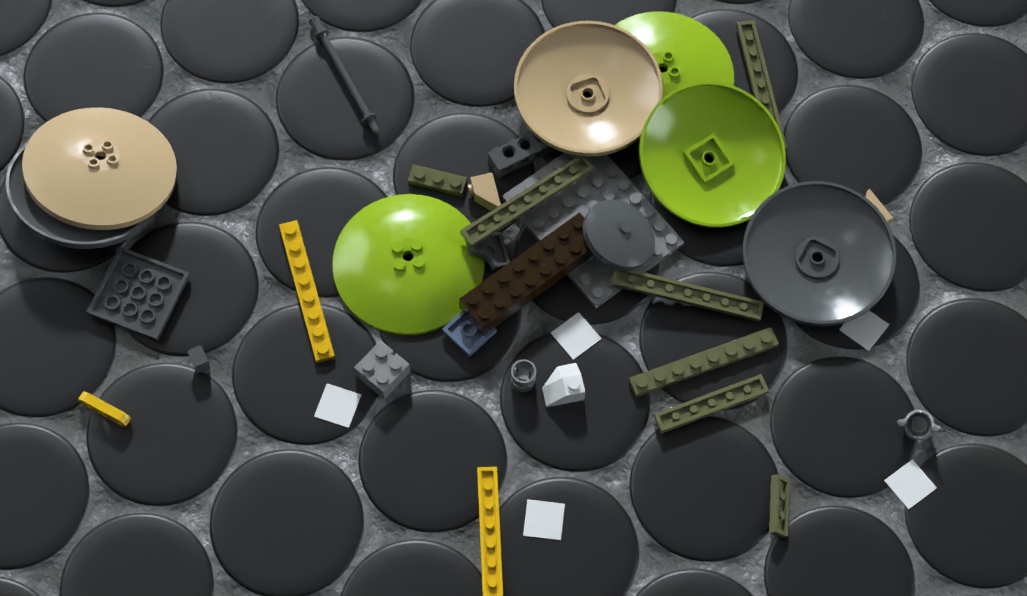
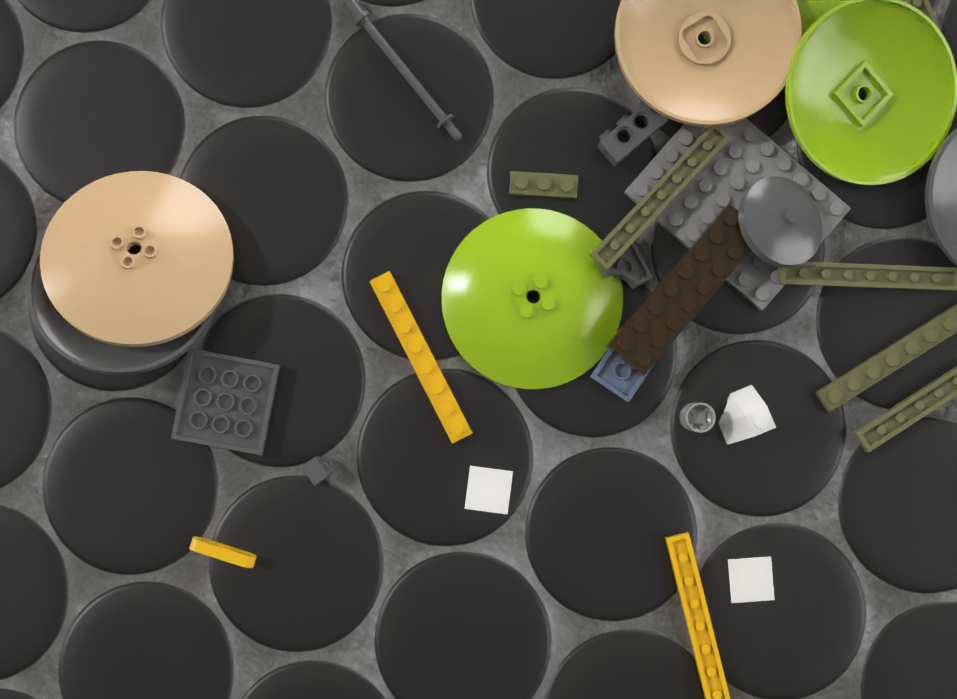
camera: 10 degrees left, 20 degrees up
(382, 369) = (532, 442): light grey piece -> none
(484, 191) = (605, 191): tan slope -> none
(576, 335) = (744, 349): white sticker -> none

